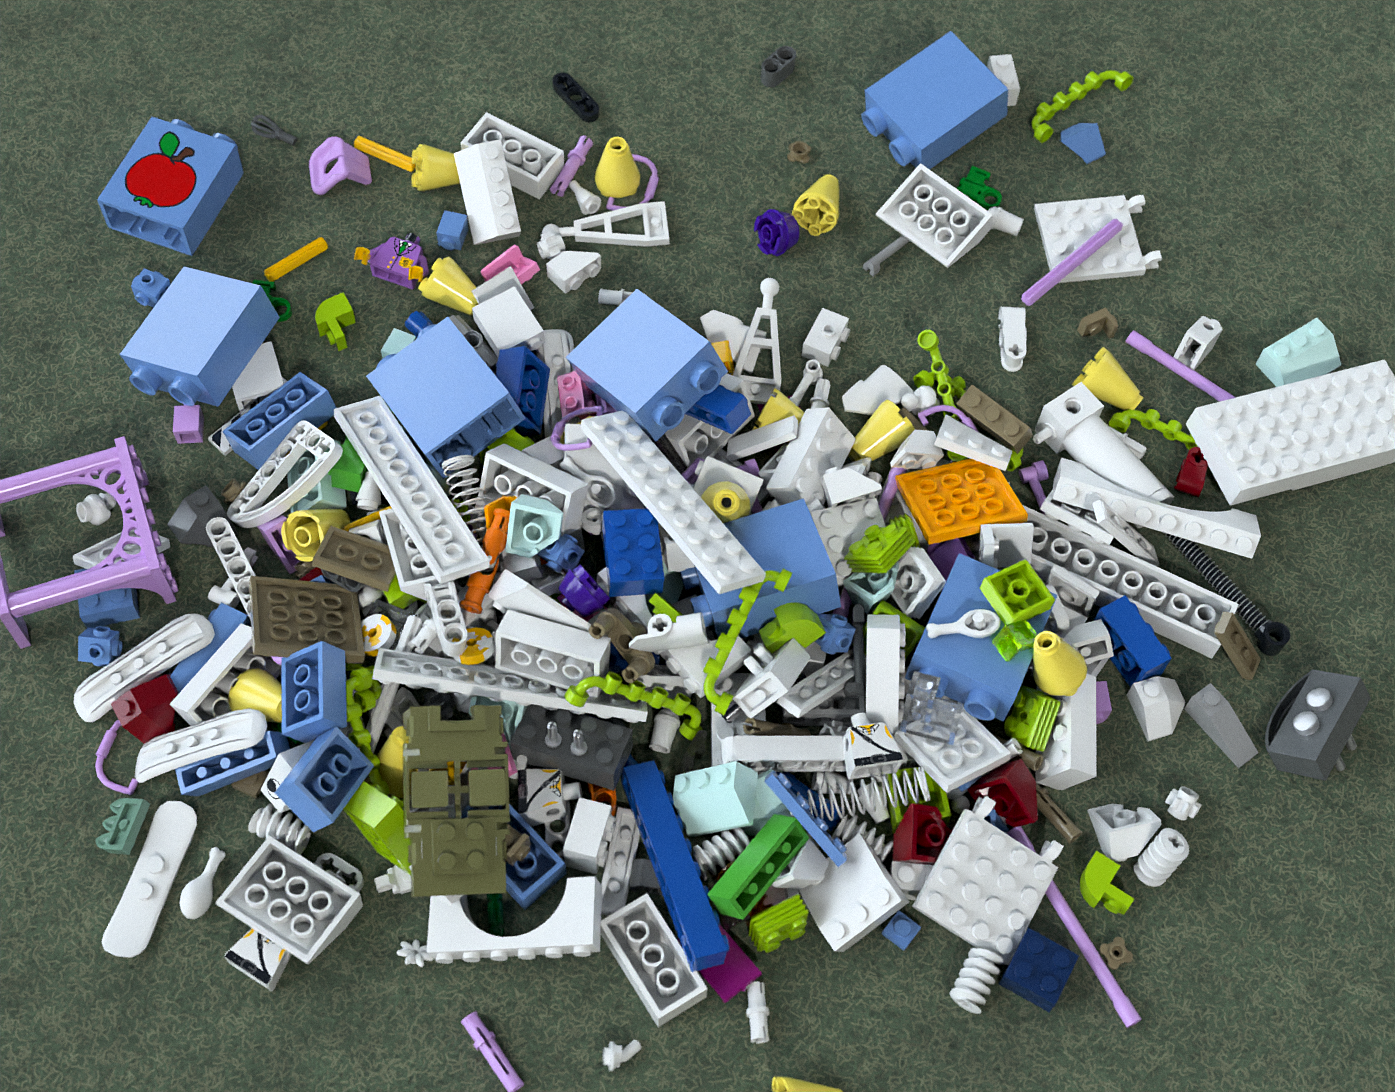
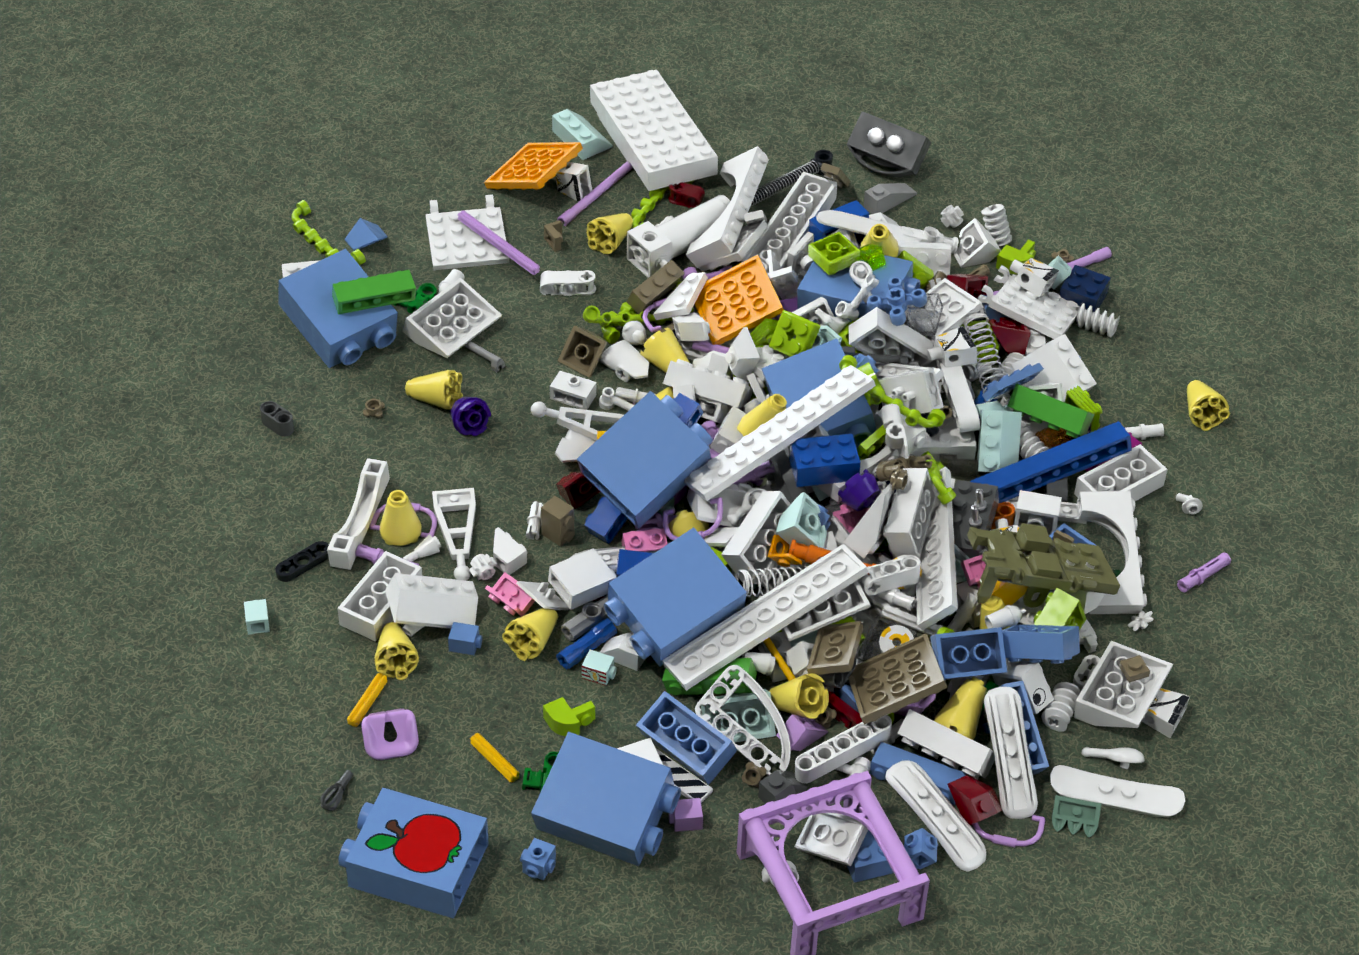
camera: 90 degrees left, 15 degrees down
(302, 910) = (1134, 668): none -> dark tan plate
(378, 748) = (1005, 617): none -> white piece
(396, 260) = (502, 671): medium lavender torso -> none
(499, 59) = (256, 616): none -> light aqua brick
(575, 622) = (899, 479): none -> dark tan plate
(602, 304) = (557, 521): none -> dark tan brick
(673, 147) = (369, 493): none -> white arch
(894, 347) = (582, 351): none -> dark tan slope
(903, 594) = (834, 323): none -> white piece
(917, 658) = (897, 300): none -> medium blue gear
(920, 616) = (849, 310): none -> white brick
(939, 117) = (373, 291): none -> bright green brick
(1038, 887) = (1034, 276): none -> white torso
(1062, 927) = (1064, 270): none -> light aqua brick
(1117, 691) = (901, 233): none -> white piece
(1214, 297) = (533, 165): none -> light orange plate

